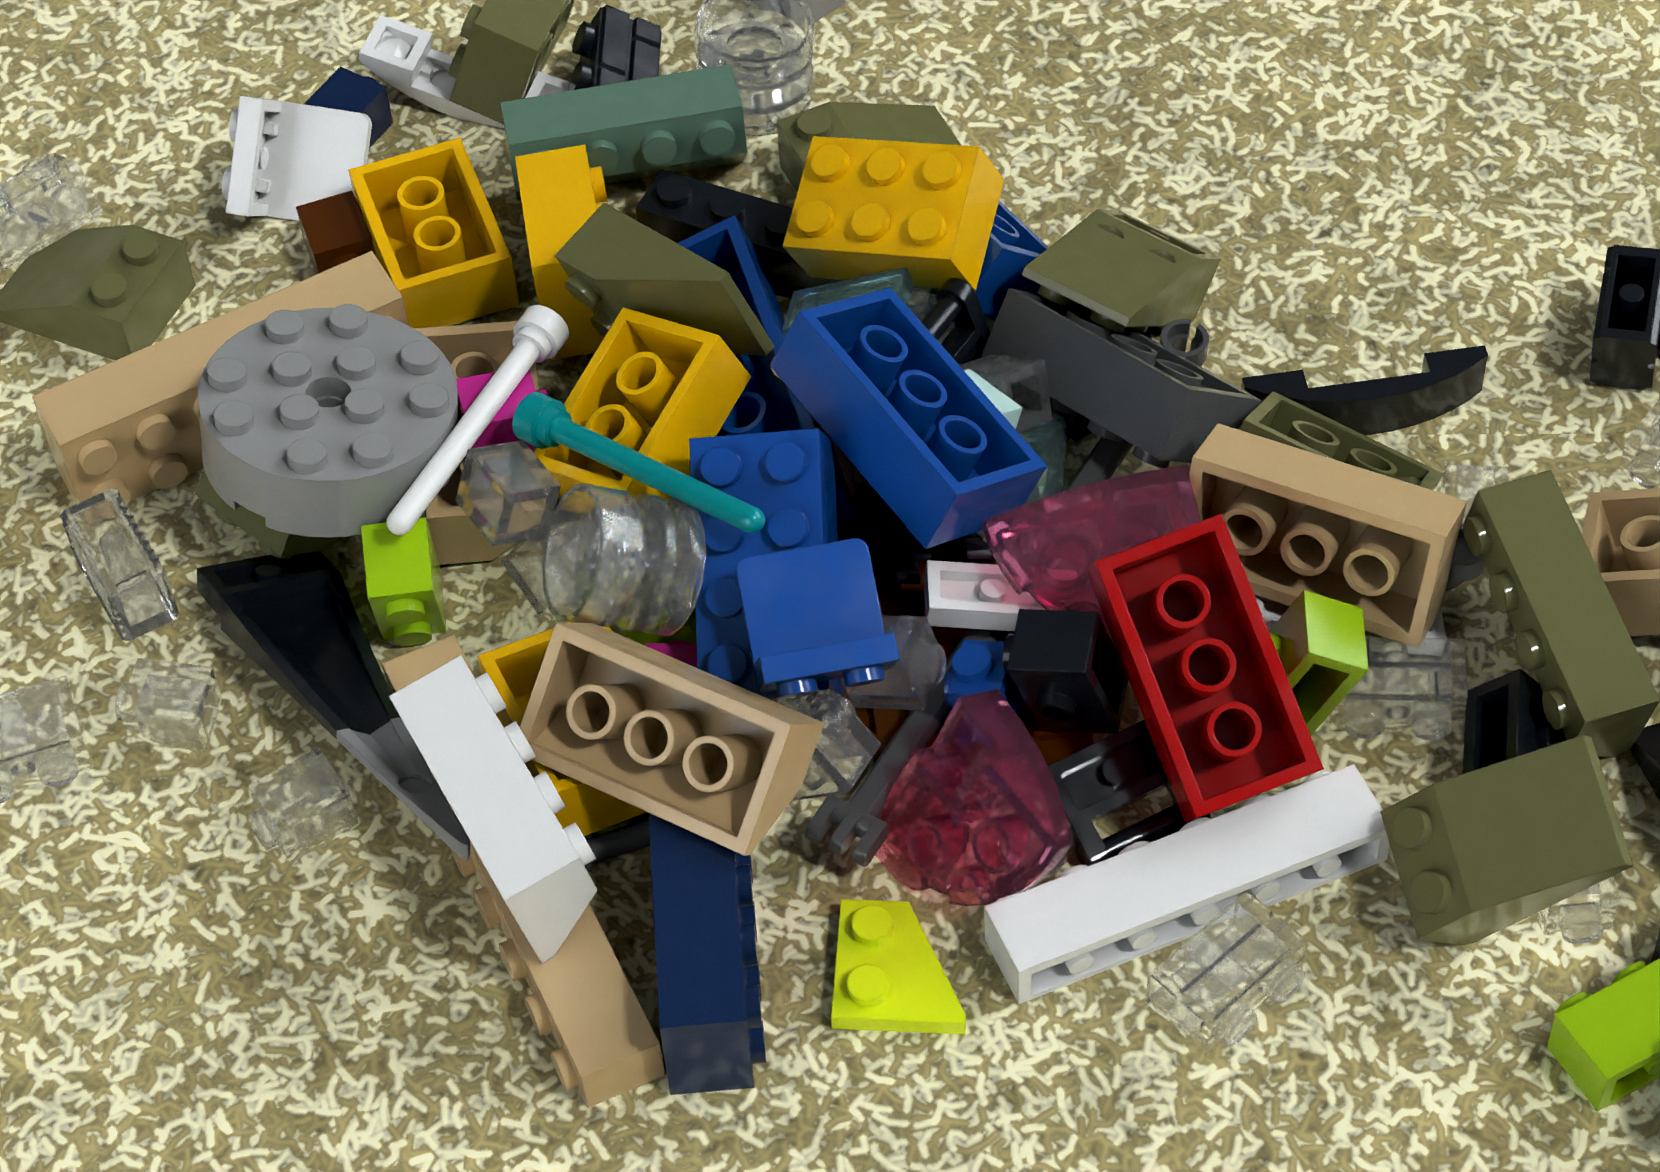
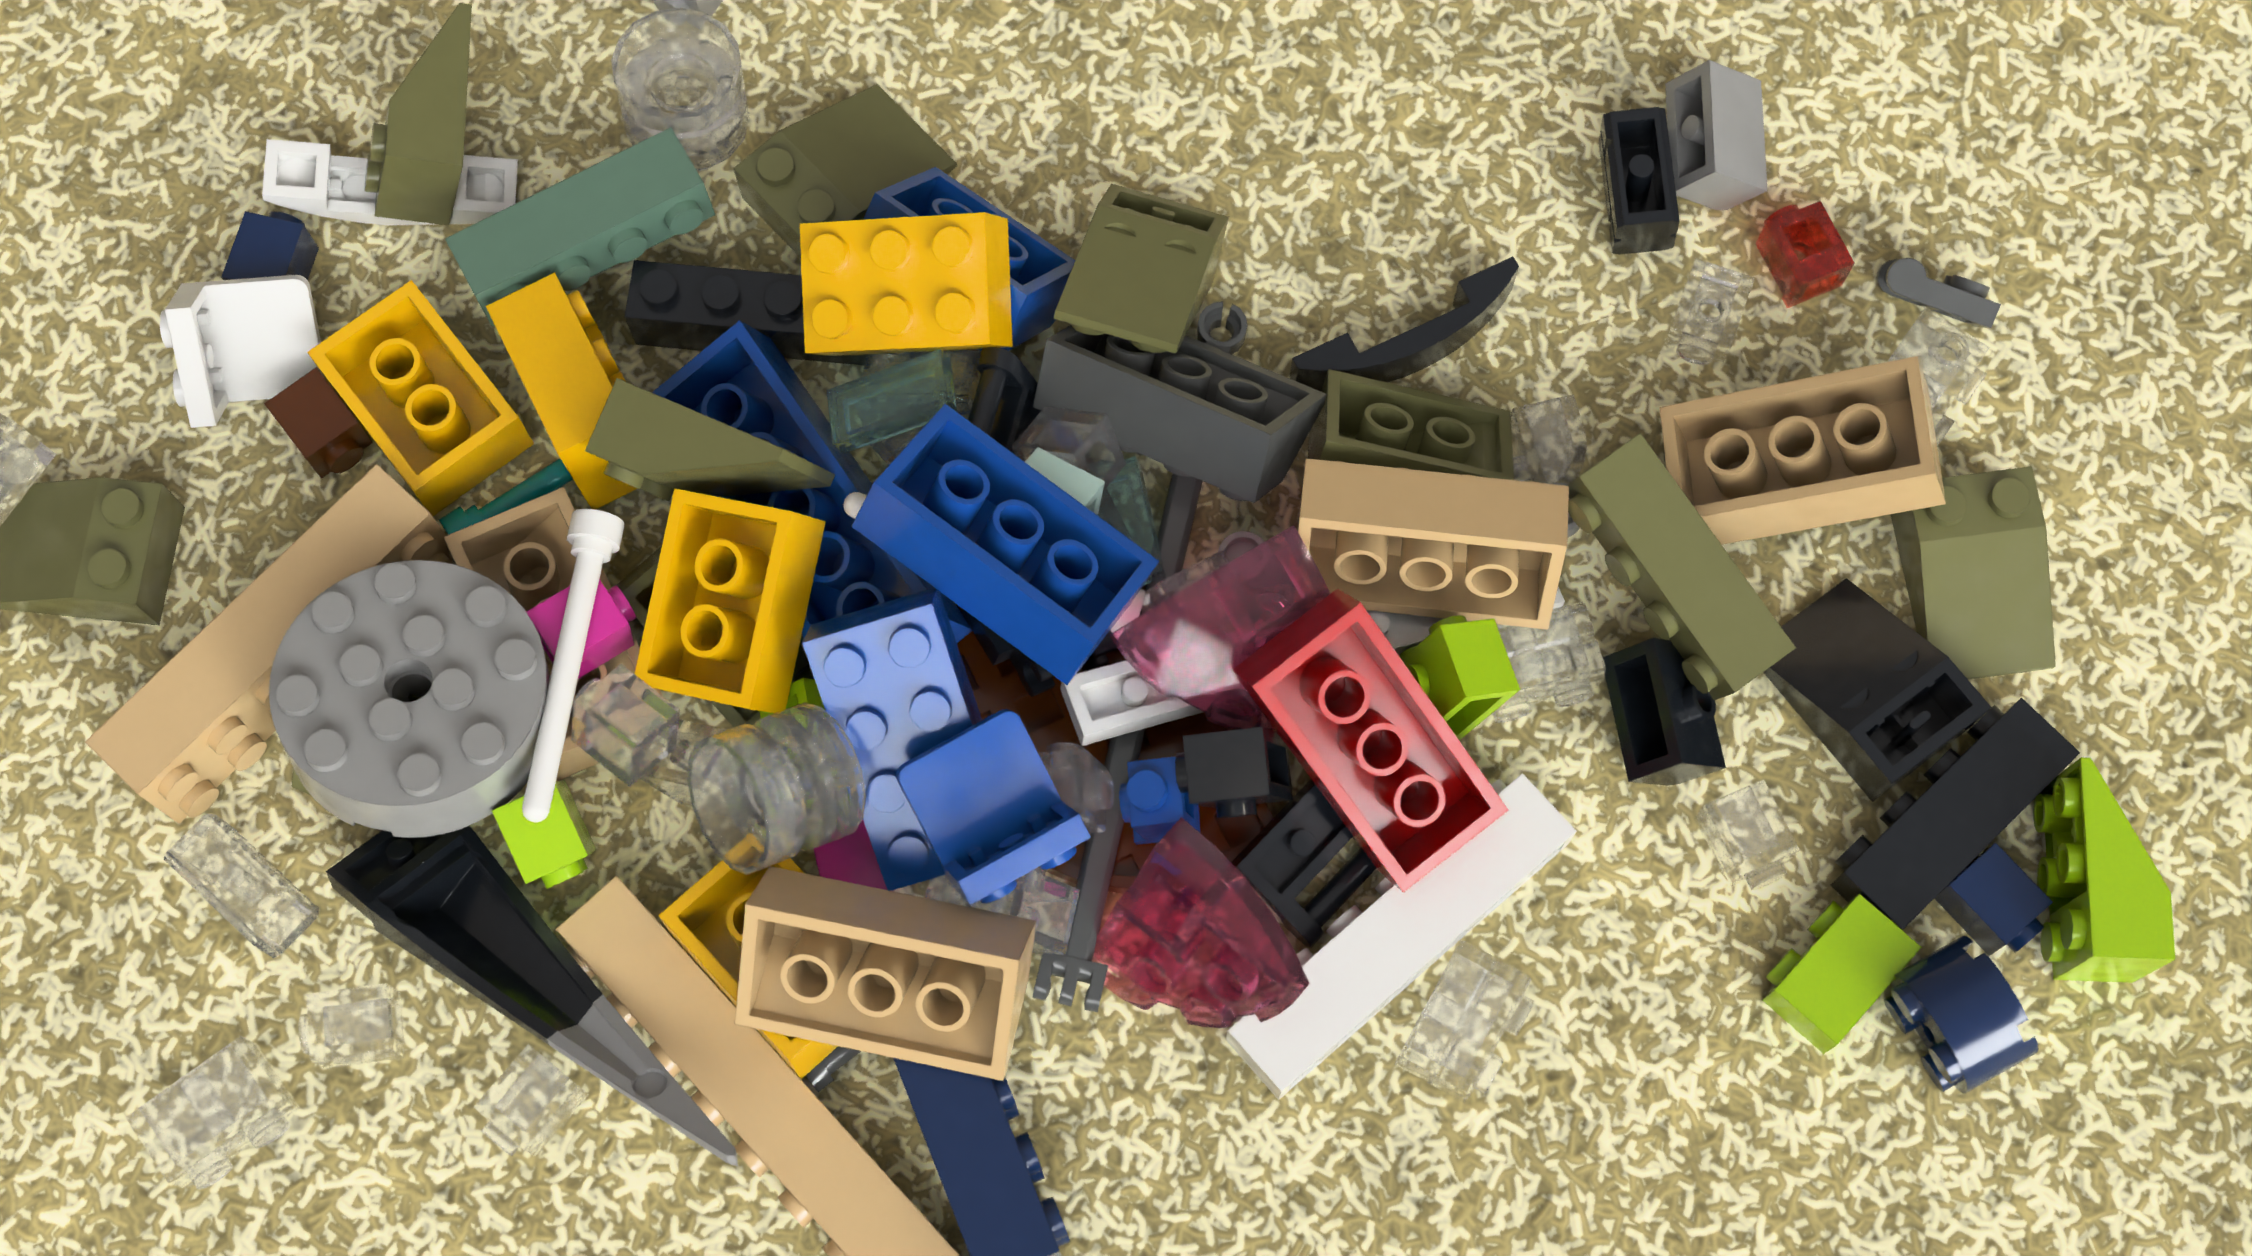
camera: 20 degrees left, 20 degrees up
(499, 801) = (741, 1092): white slope -> none
(547, 424) = (641, 645): teal piece -> none
(615, 49) = (536, 129): black brick -> none
(890, 973) = (1151, 1106): neon yellow wing -> none
(1505, 841) = (1692, 833): olive slope -> none

